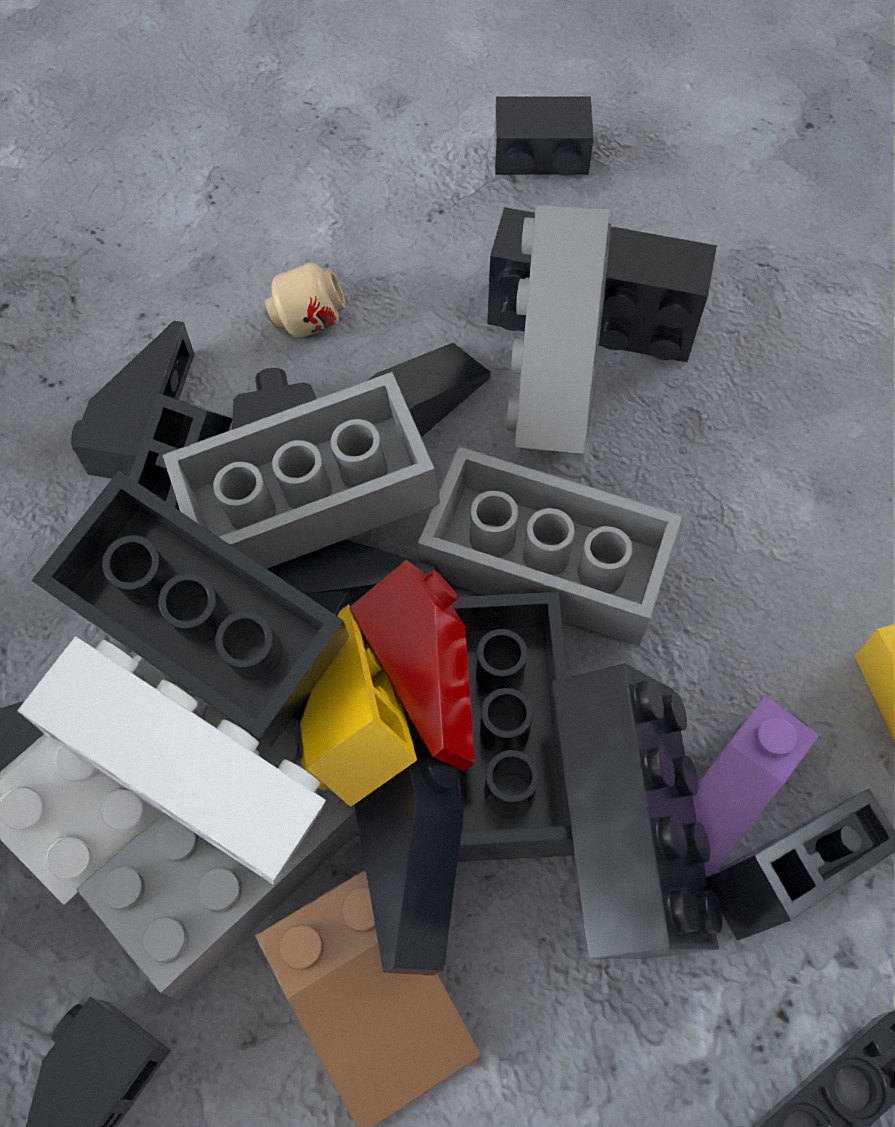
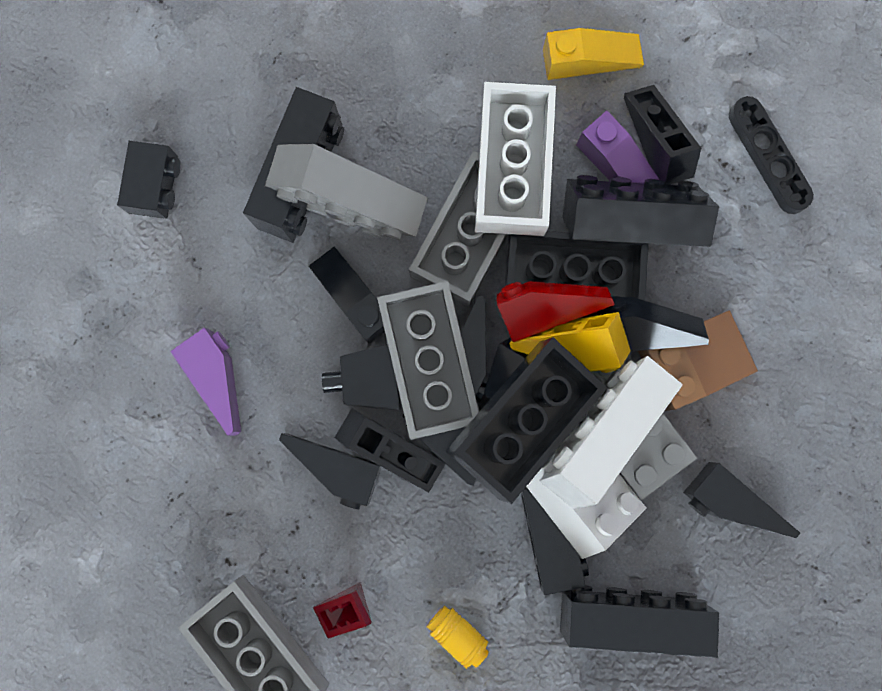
camera: 80 degrees left, 20 degrees up
(262, 243) = (212, 375): none -> medium lavender slope
(305, 300) = (266, 355): tan head -> none
(678, 559) = (515, 159): none -> white brick

